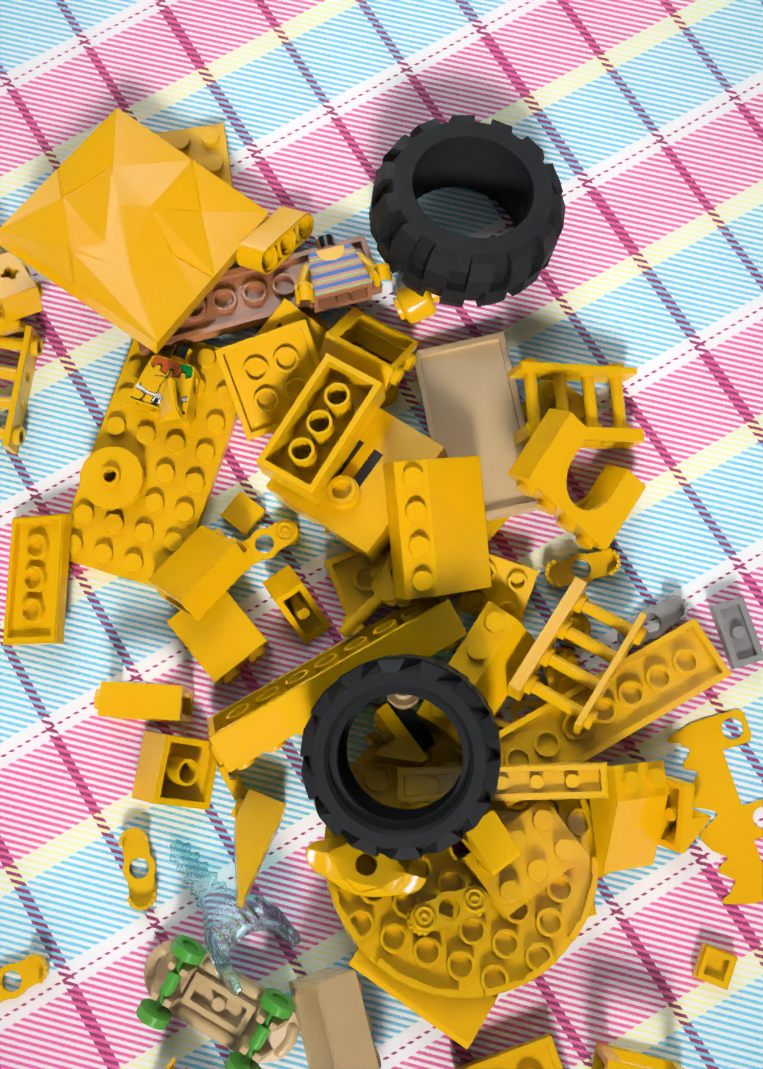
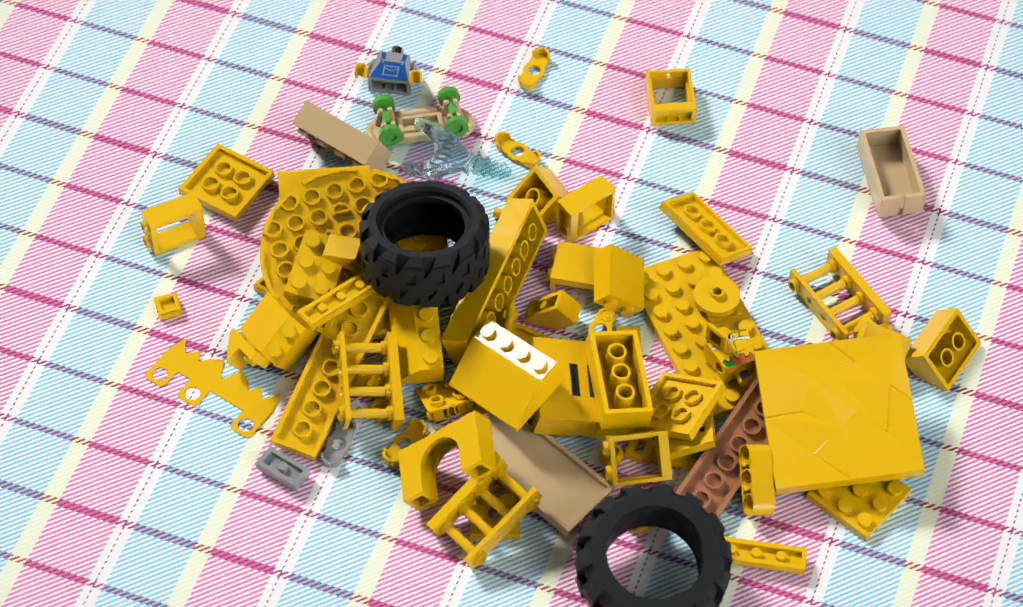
camera: 135 degrees right, 25 degrees down
(254, 830) = (465, 179): yellow slope -> none
(335, 176) = (768, 555): none -> yellow plate
(338, 276) = (699, 472): torso -> none
(343, 491) = (576, 360): yellow tile -> none
(426, 915) = (330, 223): yellow piece -> none

